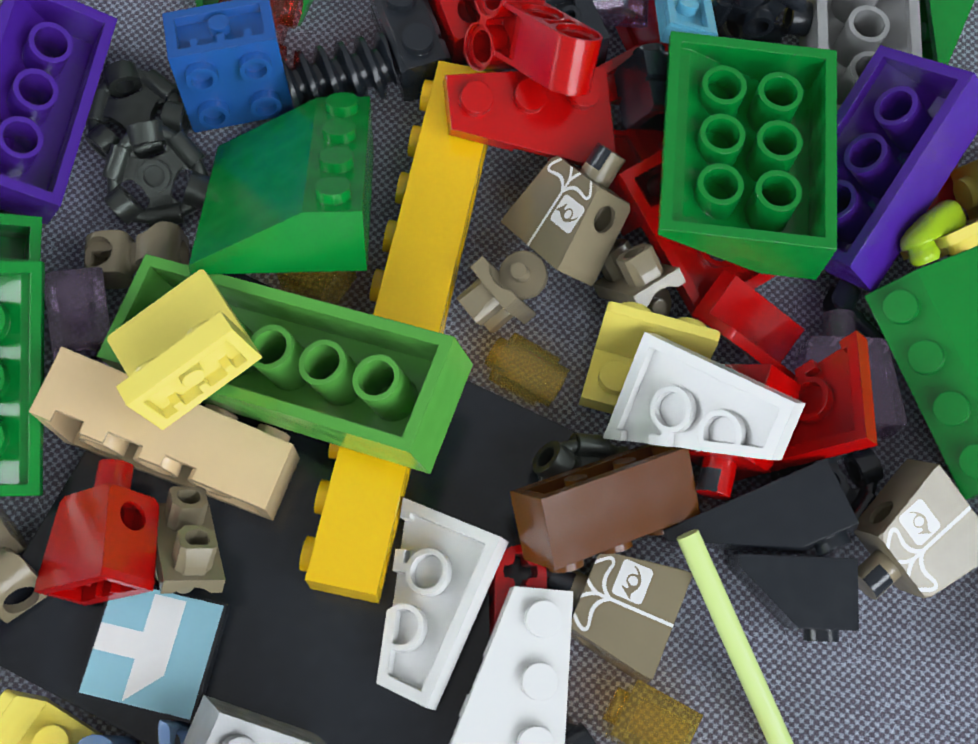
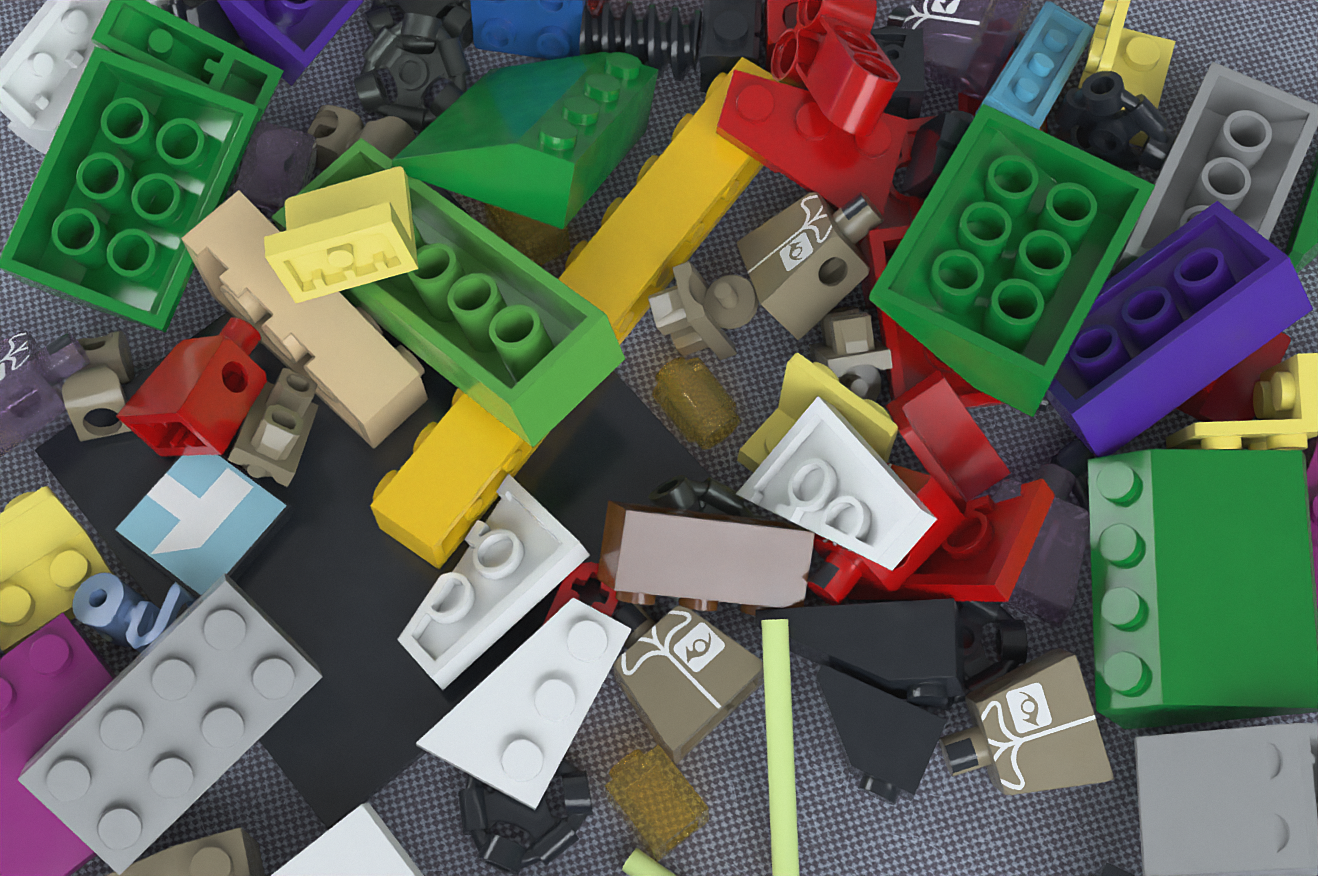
camera: 30 degrees right, 5 degrees down
(936, 222) = (1171, 417): lime arm -> none

